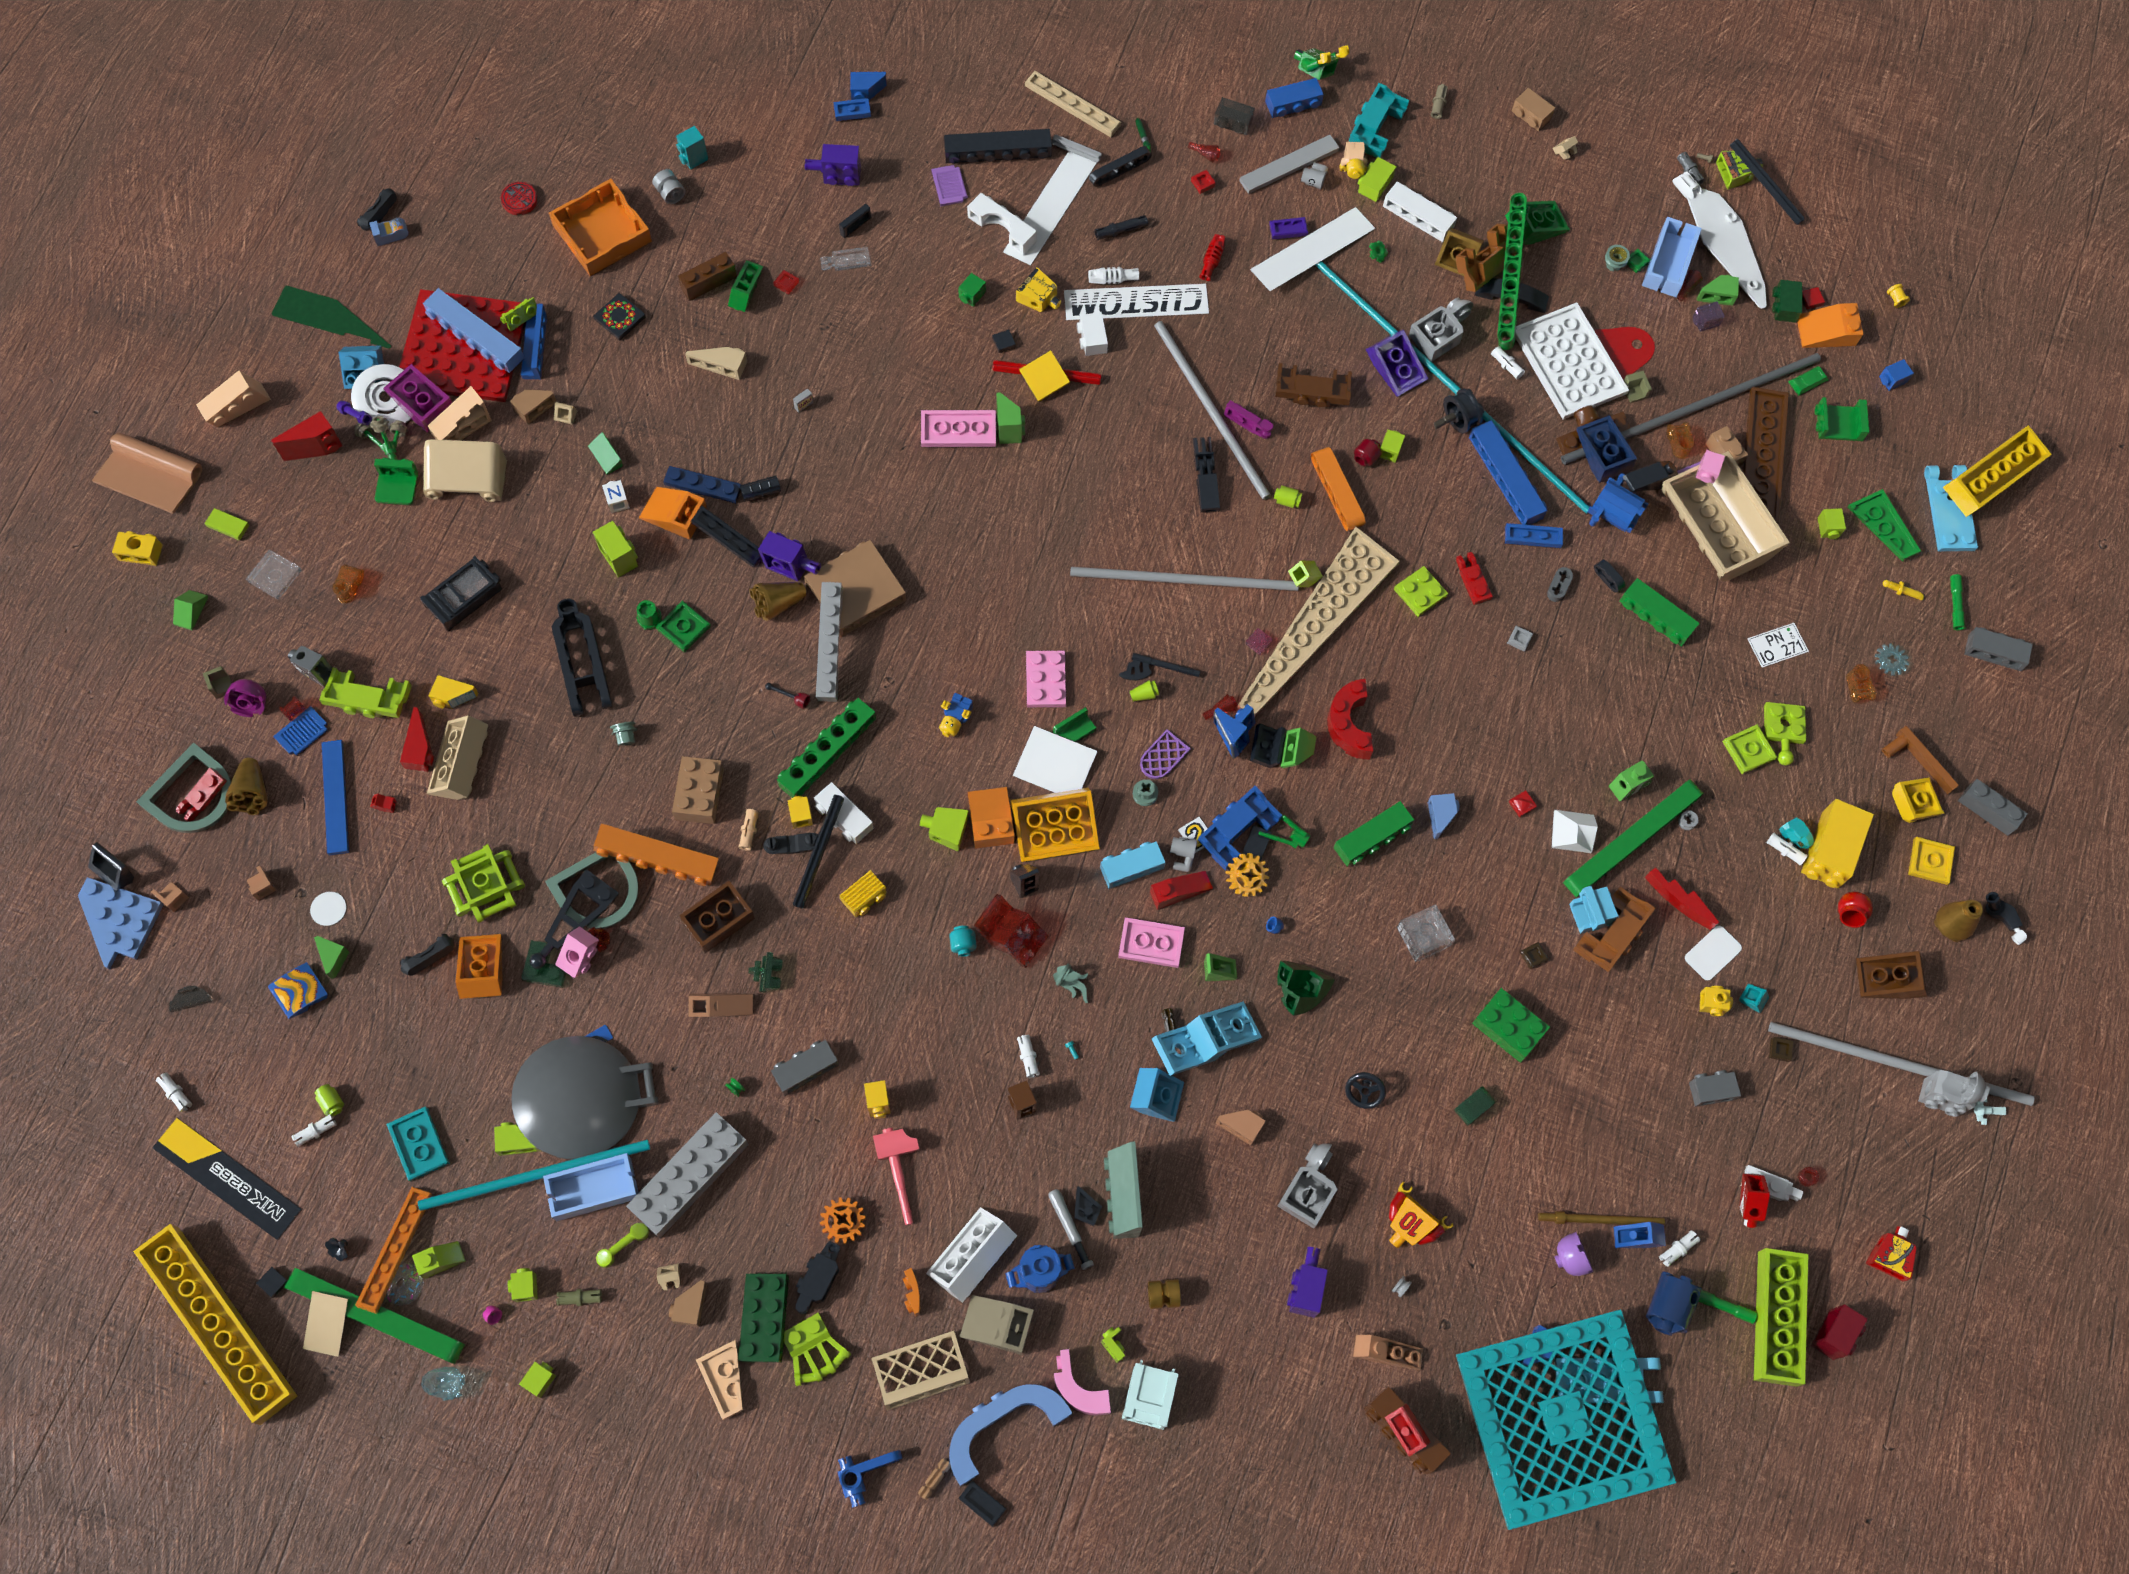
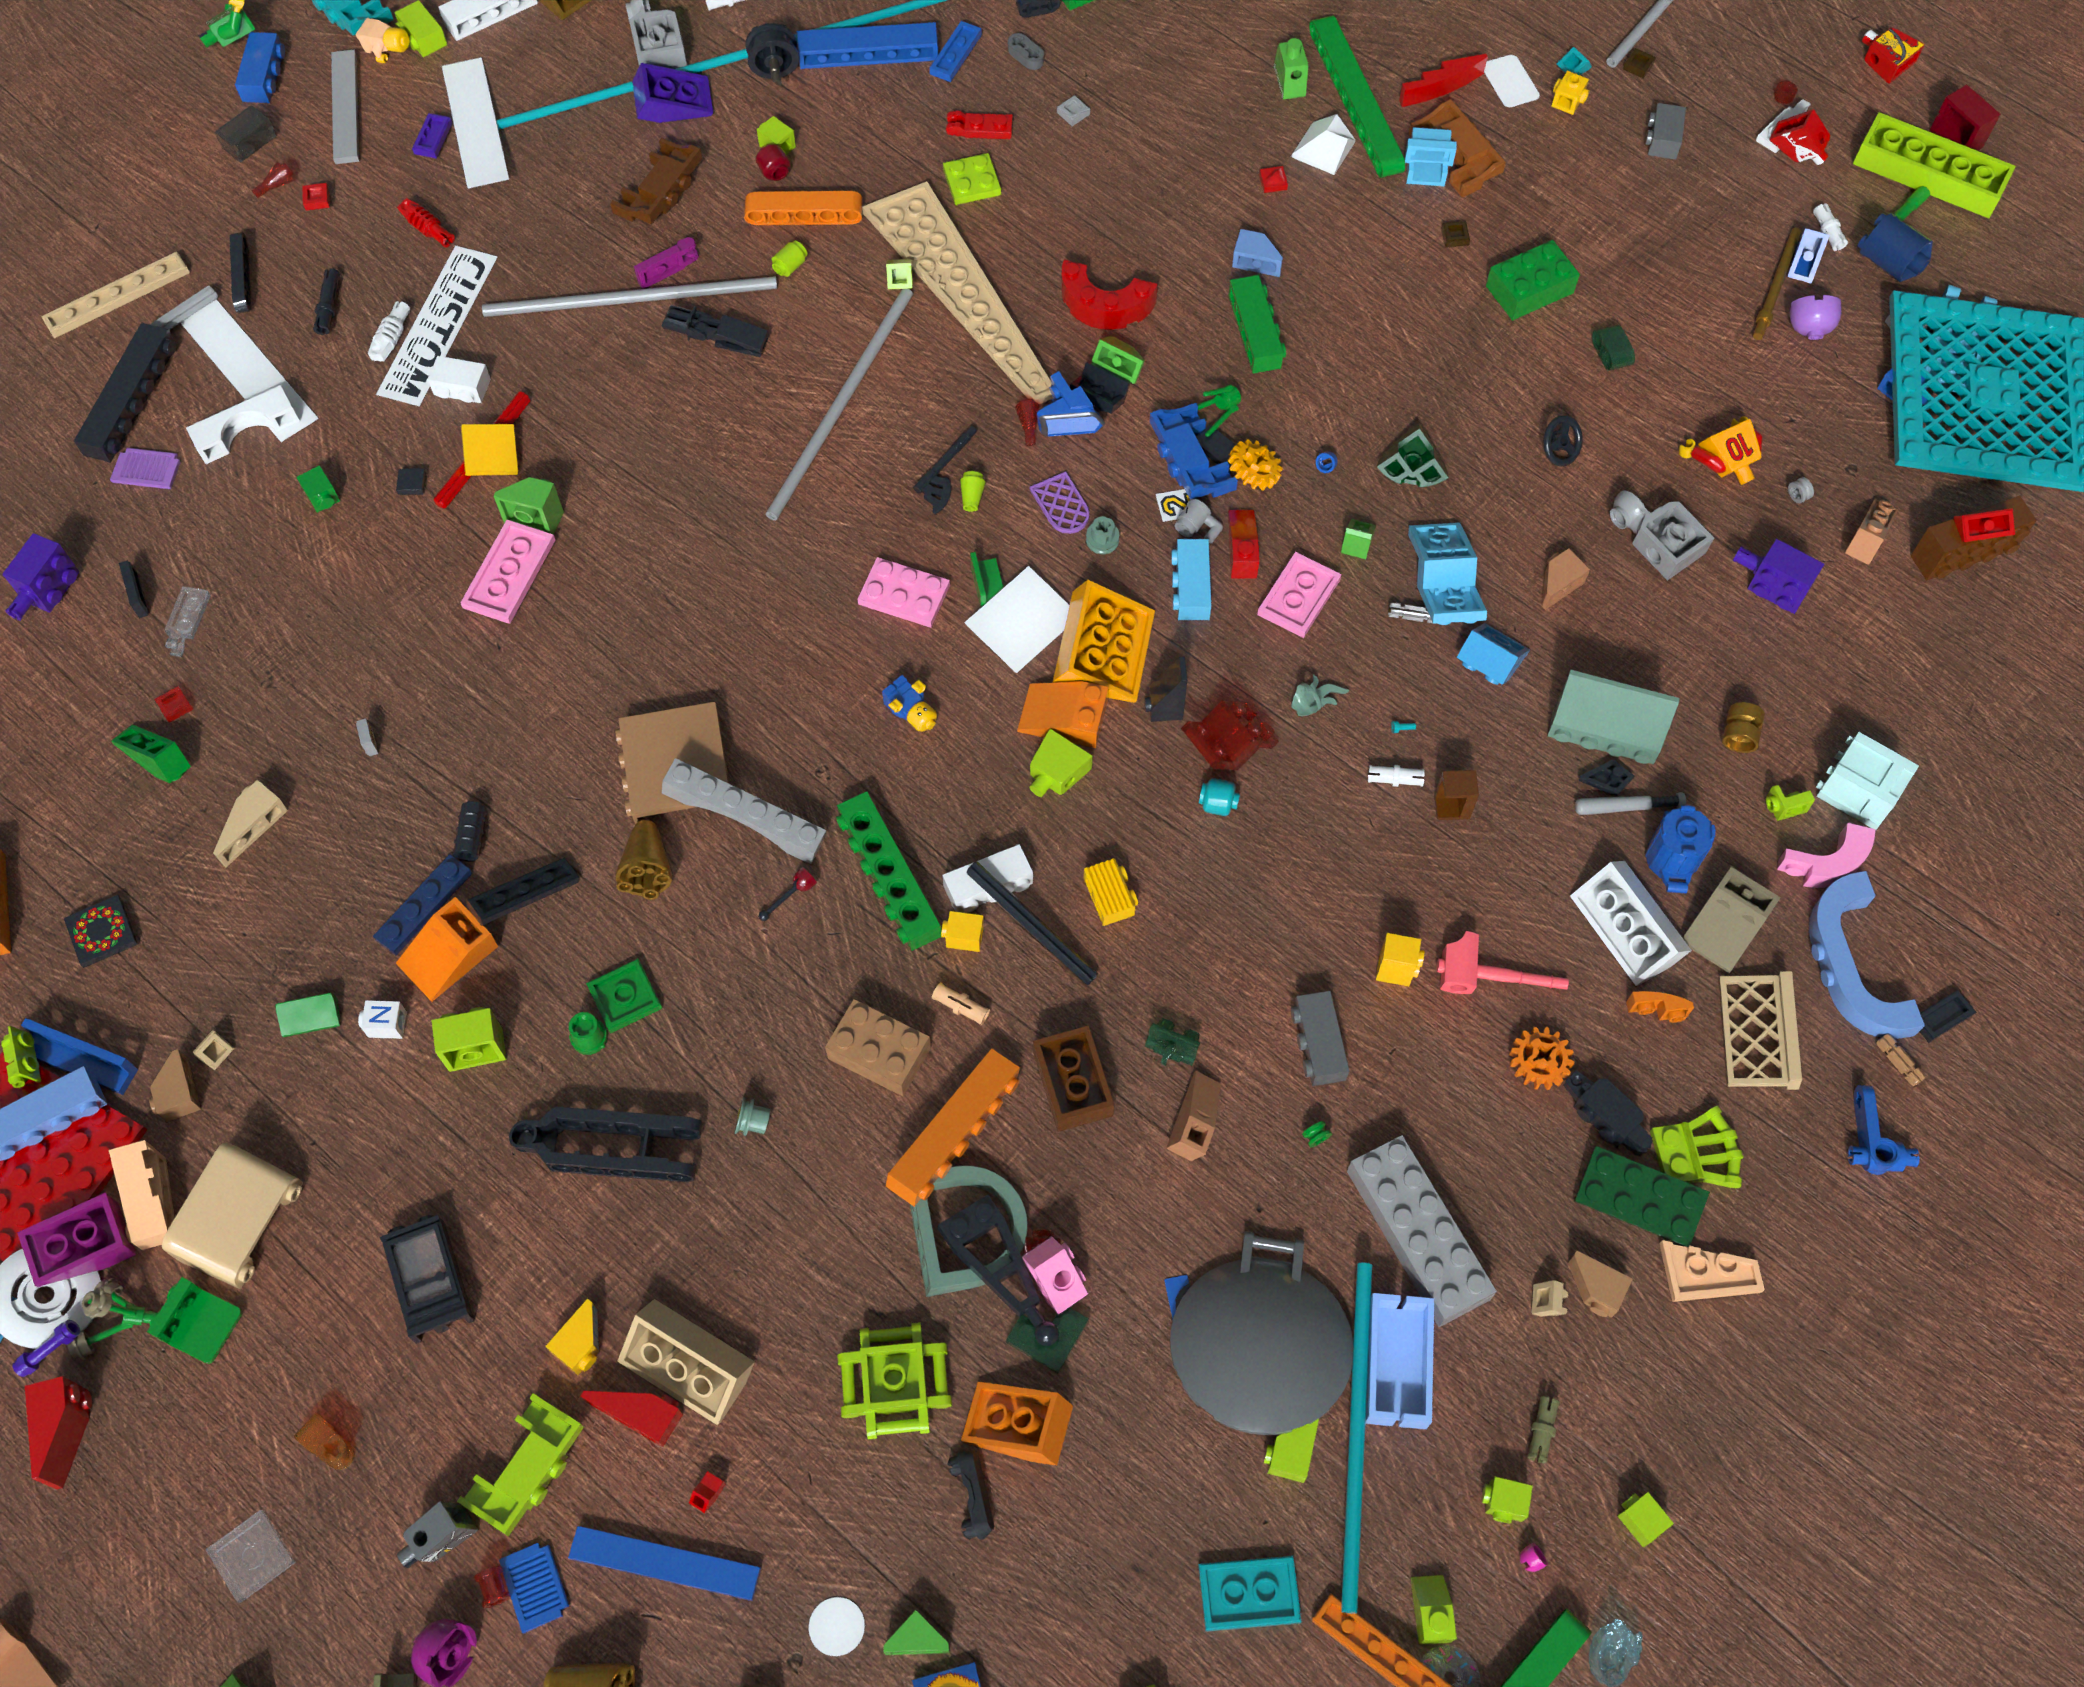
camera: 65 degrees left, 5 degrees down
(226, 524) = (125, 1607): lime tile -> none
(638, 1232) = (1499, 1376): lime bar -> none
(707, 276) = (108, 794): reddish brown brick -> none
(786, 556) = (594, 823): dark purple brick -> none
(790, 844) = (1003, 955): black piece -> none
(1038, 292) = (365, 417): yellow torso -> none
(1144, 138) = (206, 236): dark green piece -> none
(1258, 641) = (959, 355): clear pink plate -> none
(1315, 176) = (378, 85): light grey piece -> none
(1378, 251) = (517, 62): green plant -> none
(1425, 933) = (1395, 319): clear brick -> none
(1683, 823) = (1356, 42): light grey bush -> none

